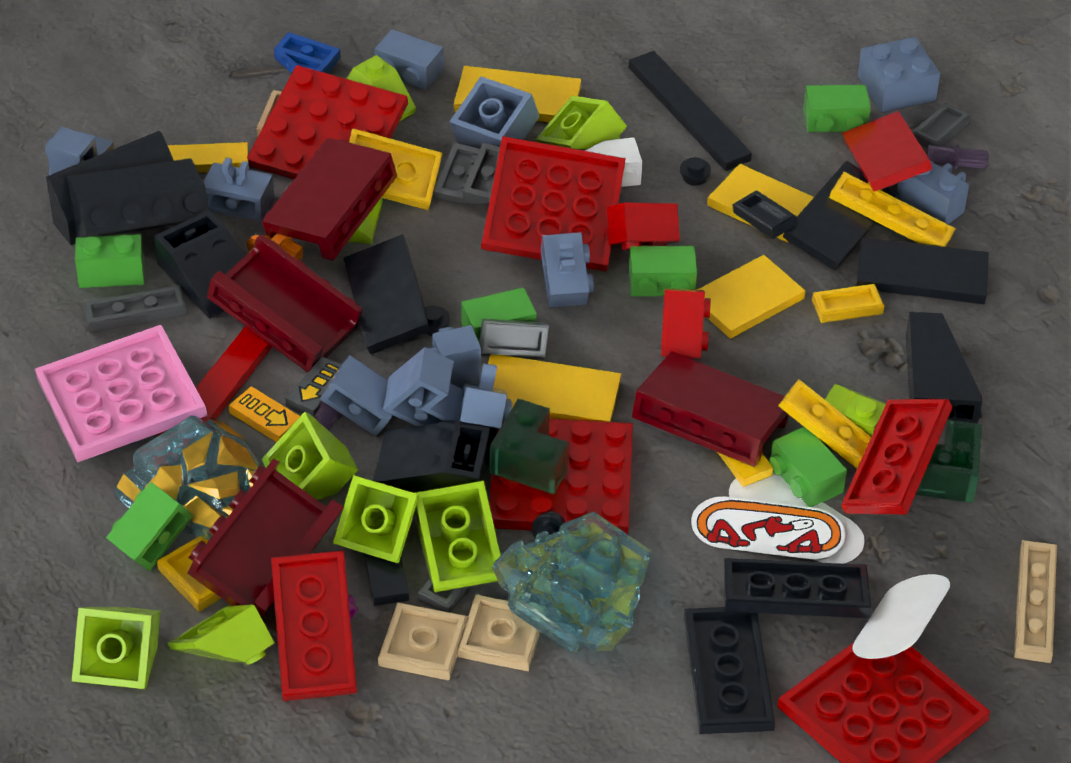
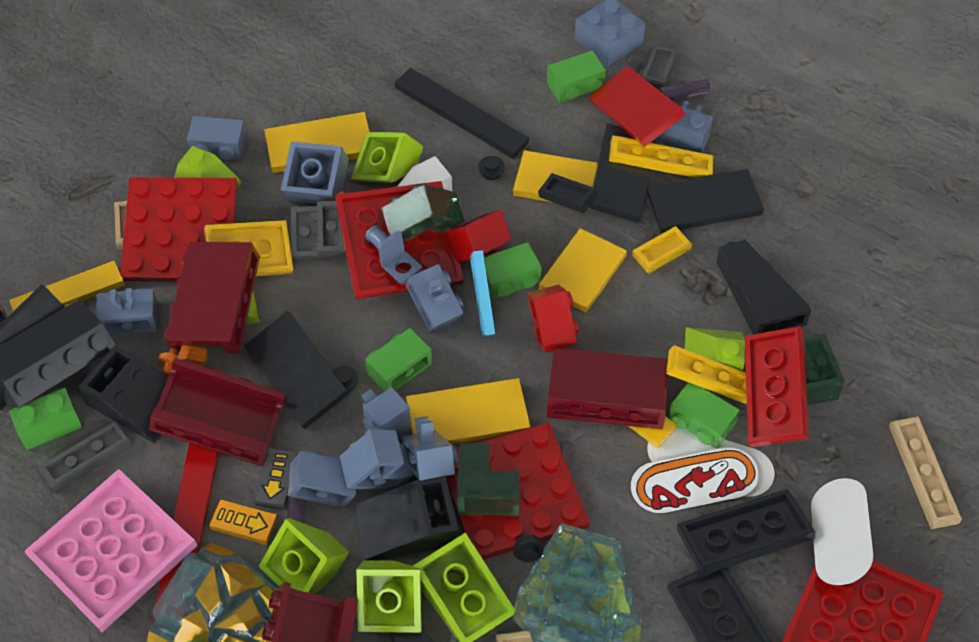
camera: 20 degrees left, 10 degrees up
(305, 52) = (128, 161): blue wing -> none
(513, 338) = (421, 376): tile -> none
(537, 207) = (392, 253): none -> sand blue bracket
(586, 173) = (423, 210): none -> brick
(617, 278) = (482, 294): none -> medium azure tile

